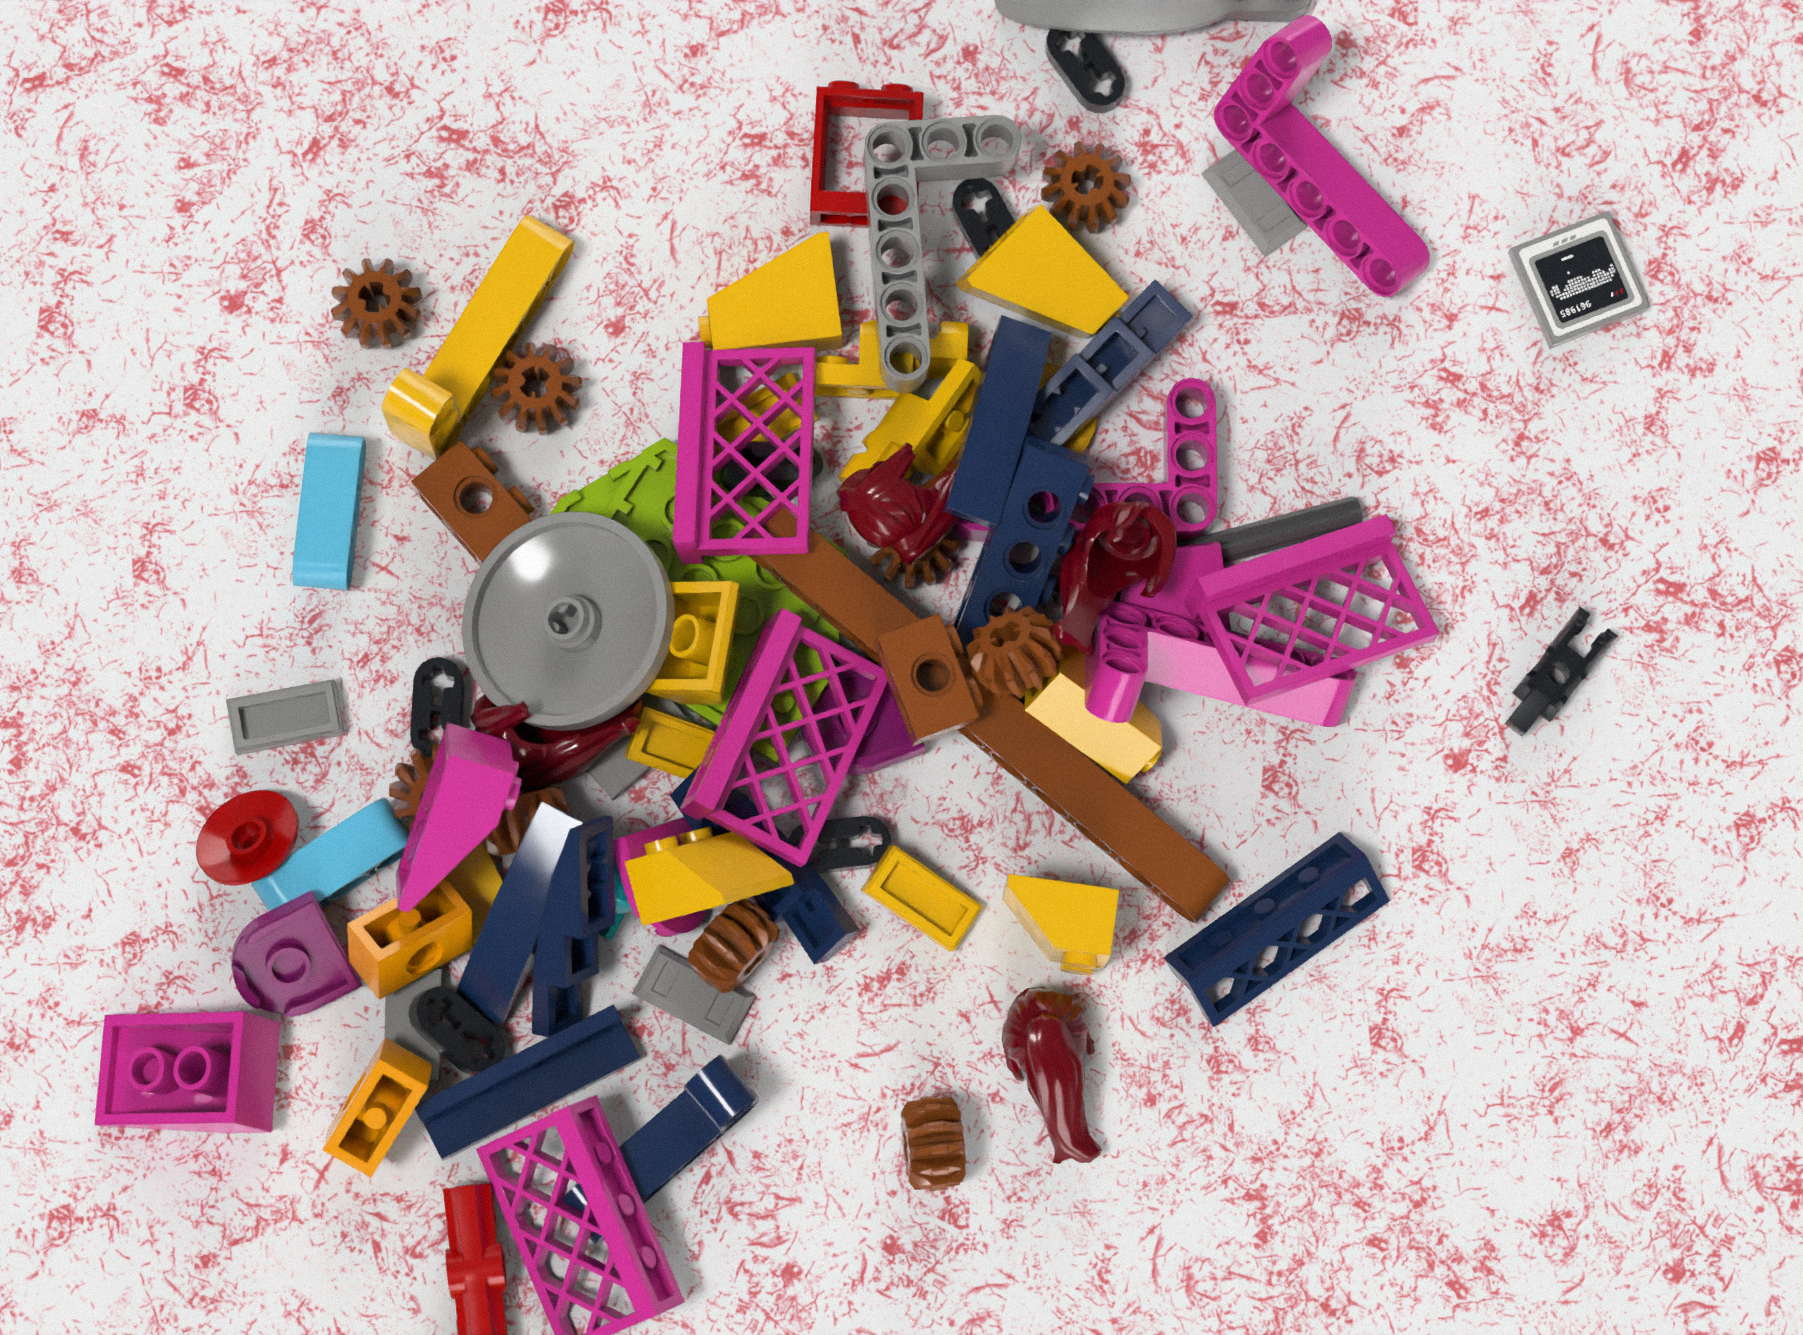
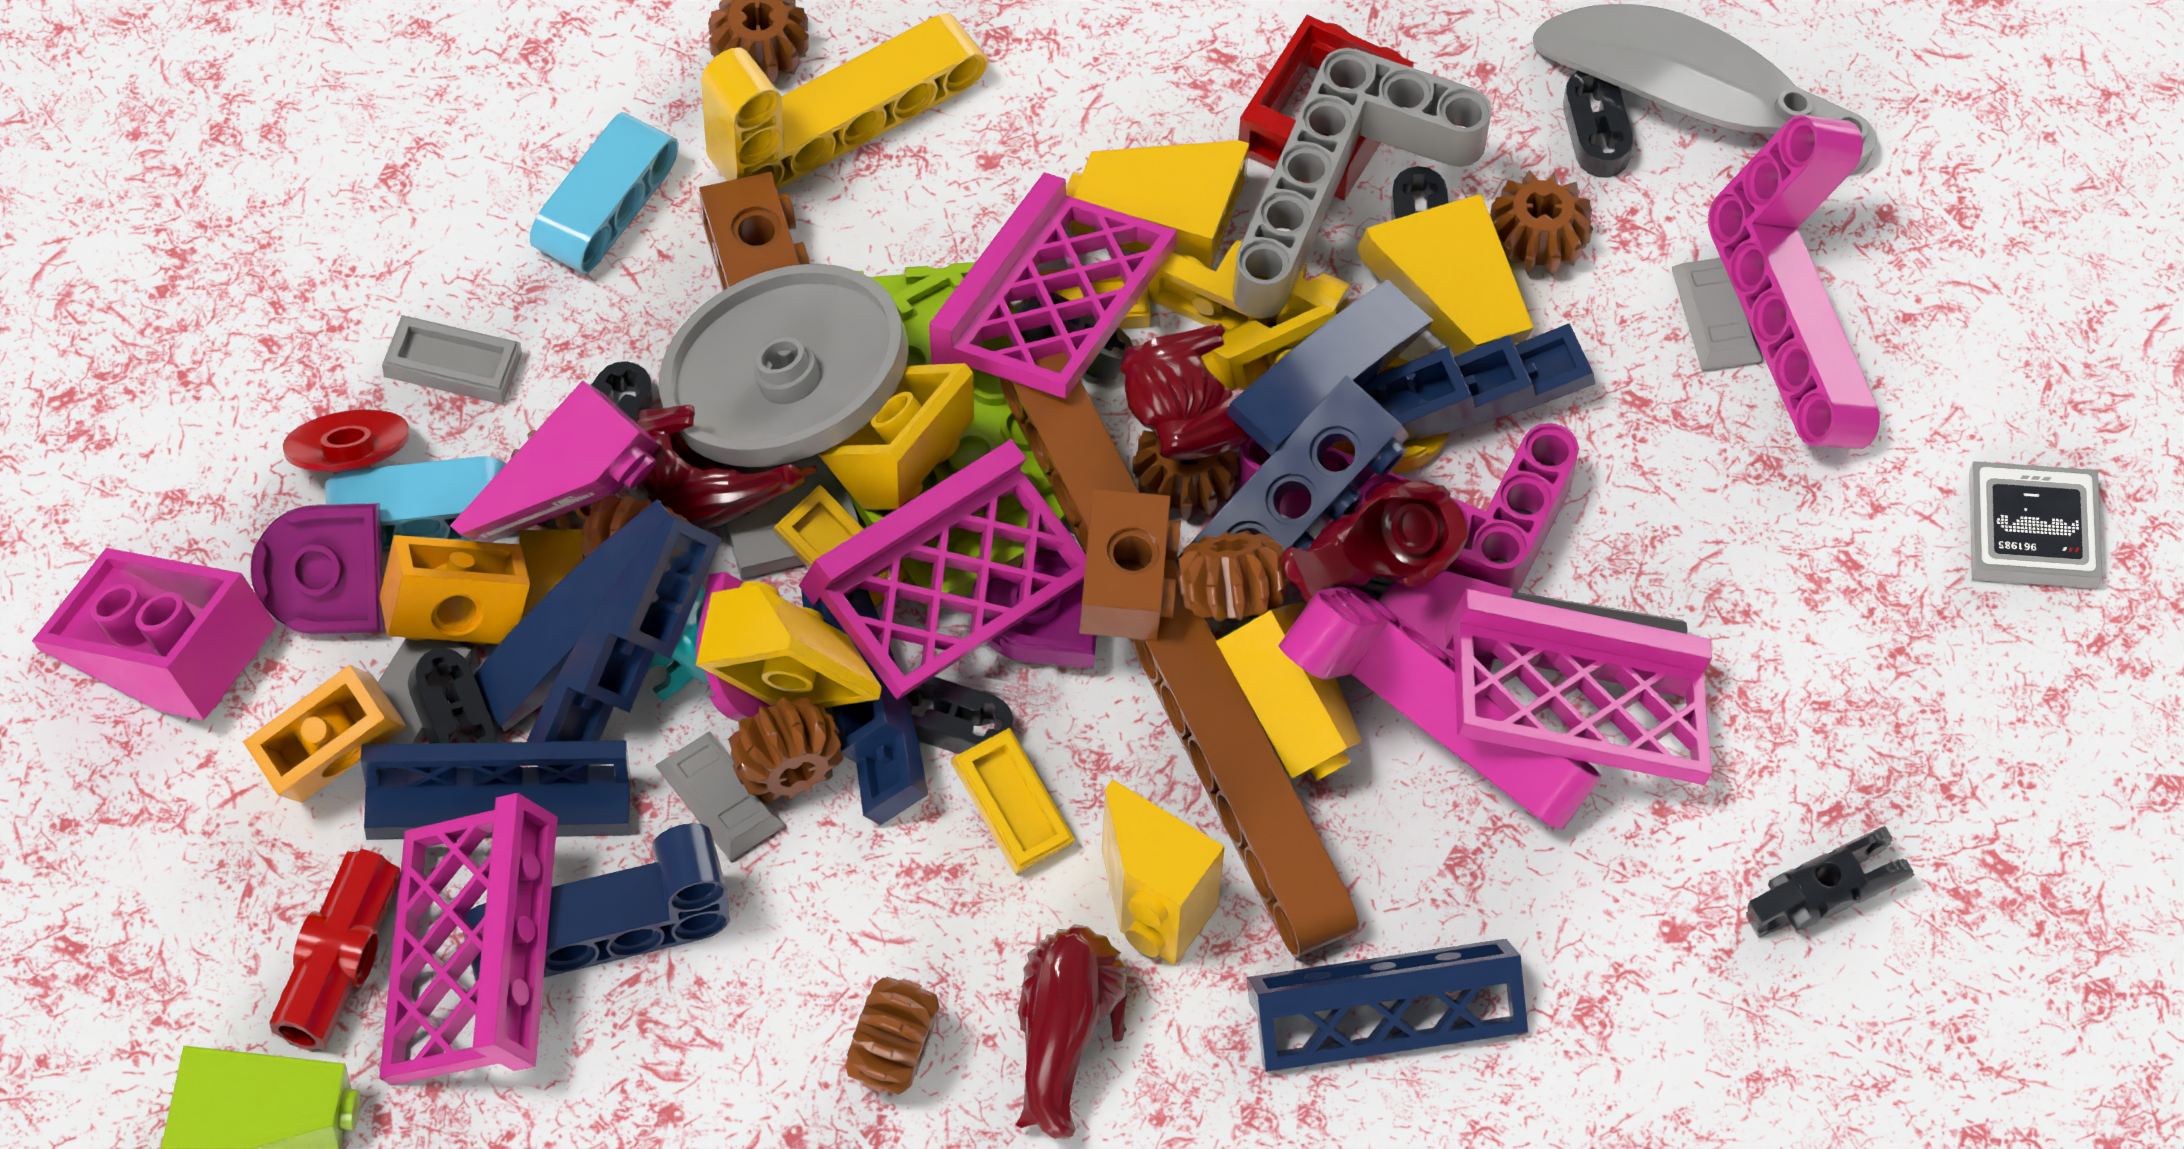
camera: 30 degrees right, 20 degrees down
(515, 394) = (875, 170): dark orange gear -> none

